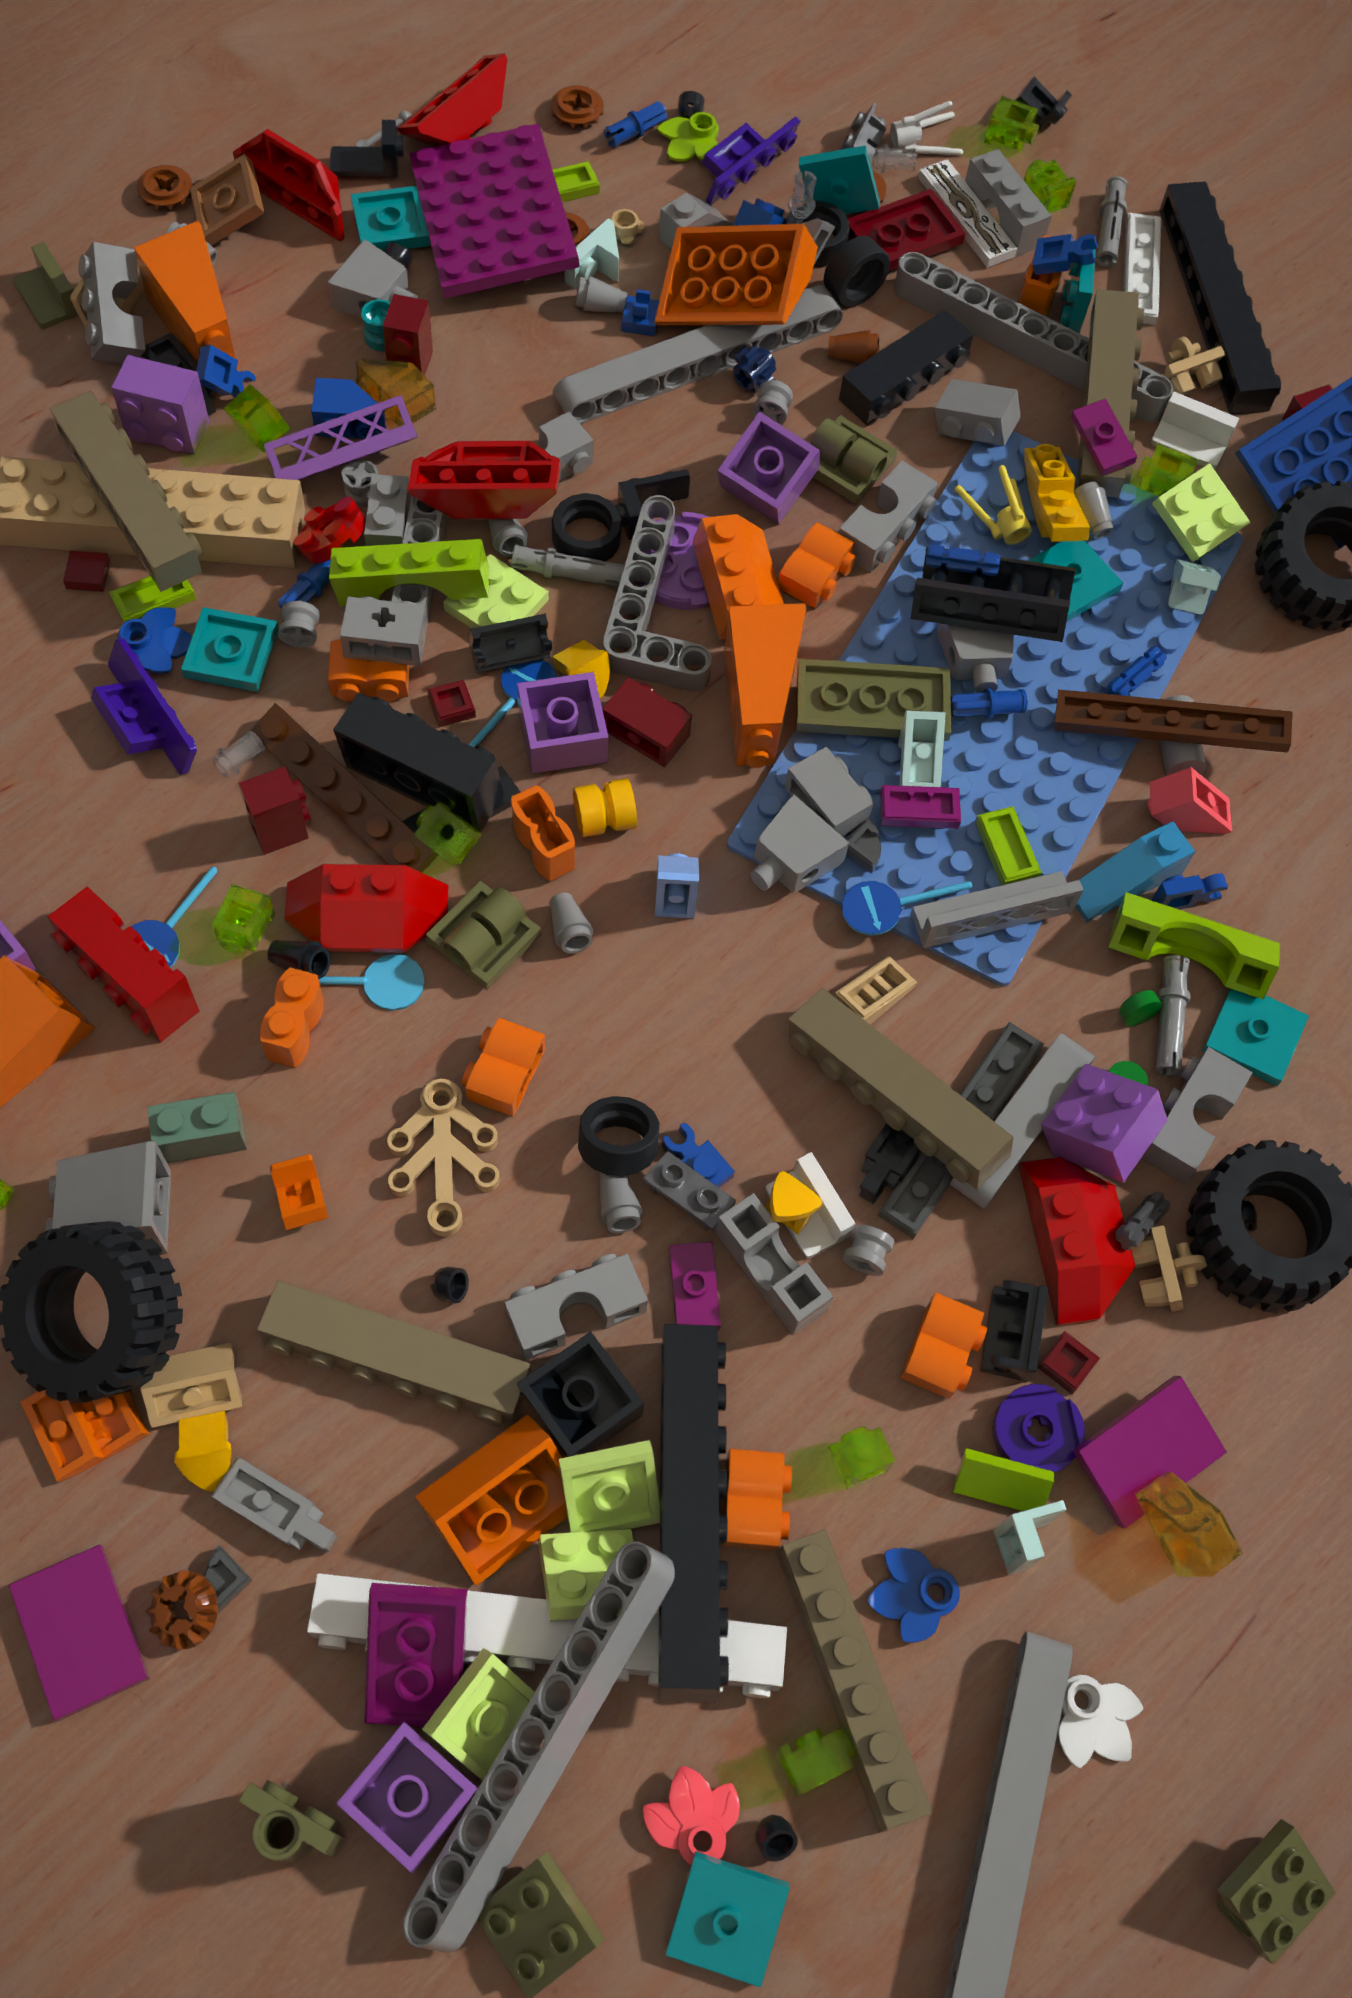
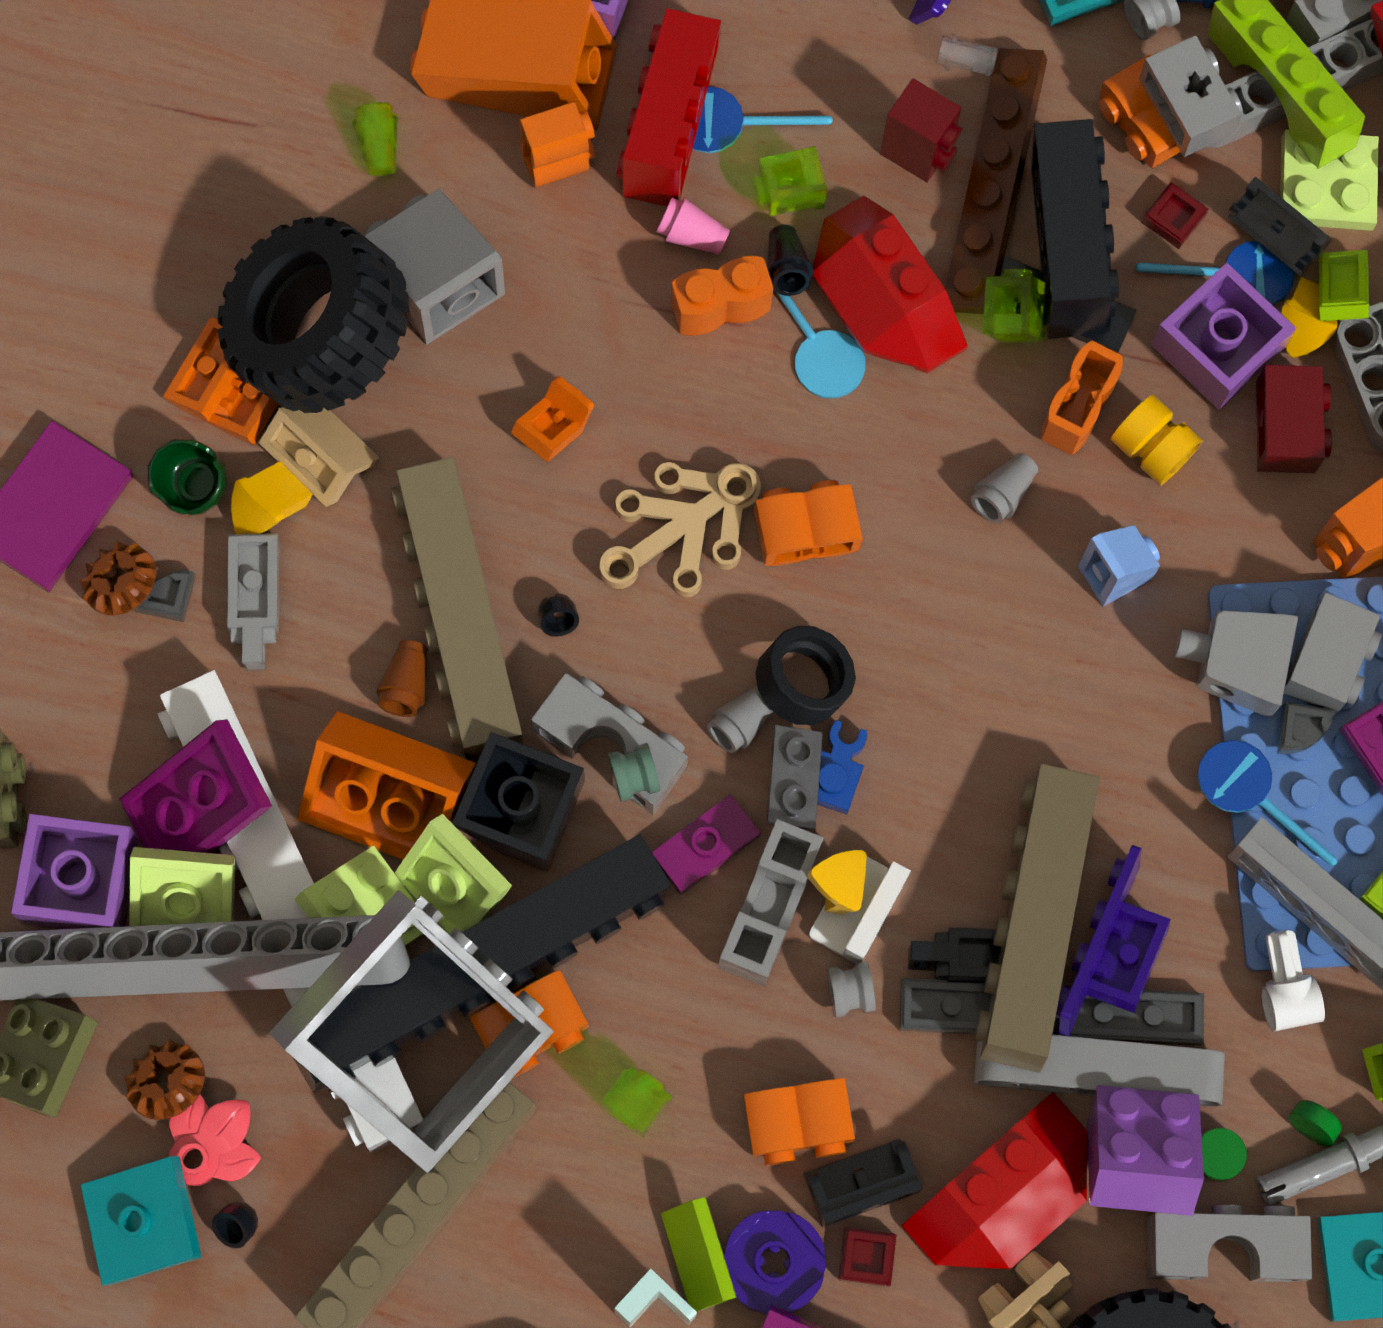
camera: 60 degrees right, 10 degrees up
(89, 1055) = (556, 143): none -> orange brick
(140, 1499) = (187, 476): none -> dark green hair
(198, 1127) = (555, 286): sand green brick -> none
(223, 1007) = (691, 227): none -> bright pink cone
(423, 1430) = (404, 680): none -> dark orange cone
(484, 933) = (935, 414): olive plate -> none
(580, 632) = (1343, 285): none -> lime tile
(618, 1295) = (634, 772): none -> sand green wheel
(639, 1811) = (184, 1081): none -> dark orange gear
(788, 1565) = (479, 1083): none -> light grey window
(816, 1760) = (325, 1220): clear neon green brick -> none
(862, 985) = (1114, 844): tan slope -> none
(907, 1597) = (531, 1224): blue plate -> none
(950, 1048) = (1120, 952): none -> dark purple bracket
(1044, 968) = (1290, 997): none -> white axle
(1142, 1220) = (1066, 1249): dark grey axle -> none

